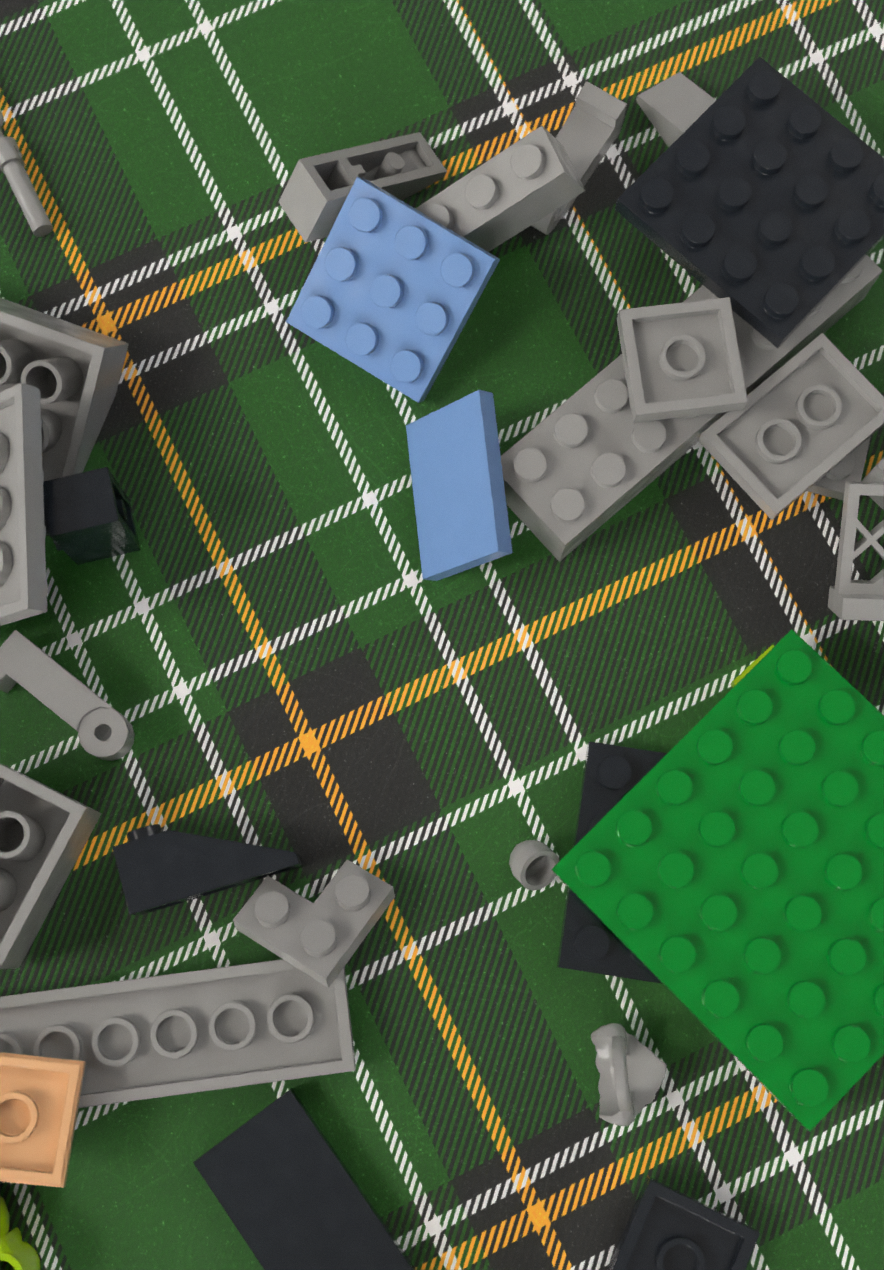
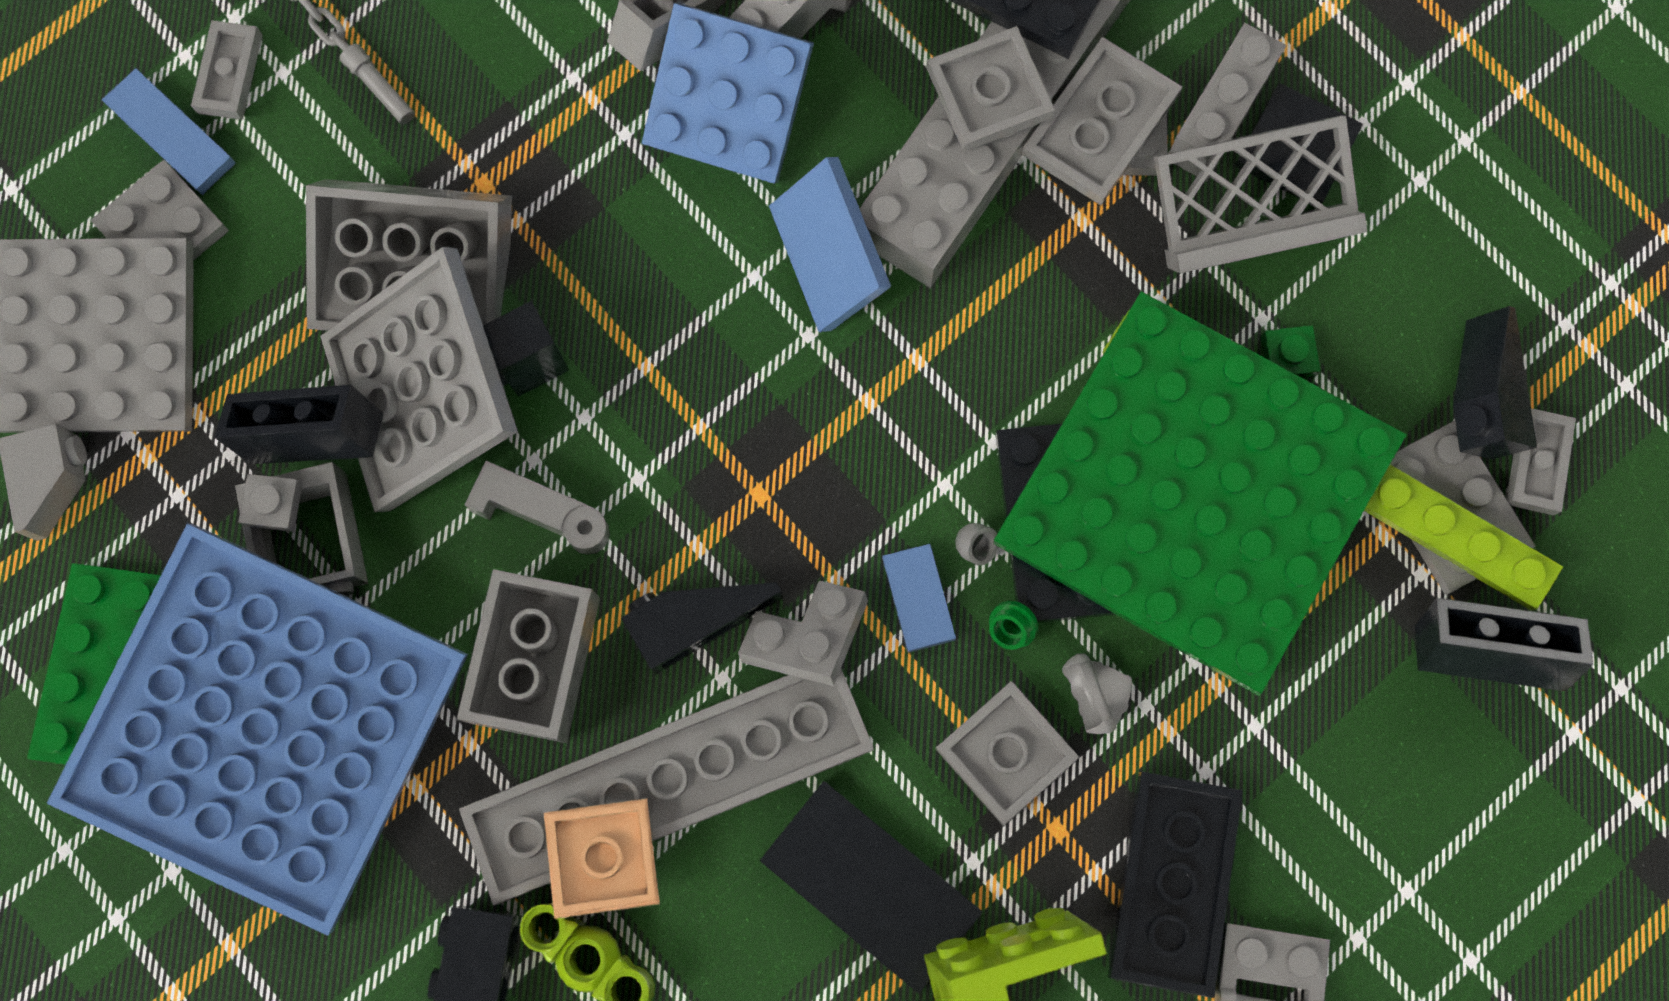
camera: 10 degrees left, 0 degrees up
(452, 908) = (918, 598): none -> medium blue tile
(503, 1115) = (1007, 753): none -> light grey plate
(548, 969) = (1008, 634): none -> green plate

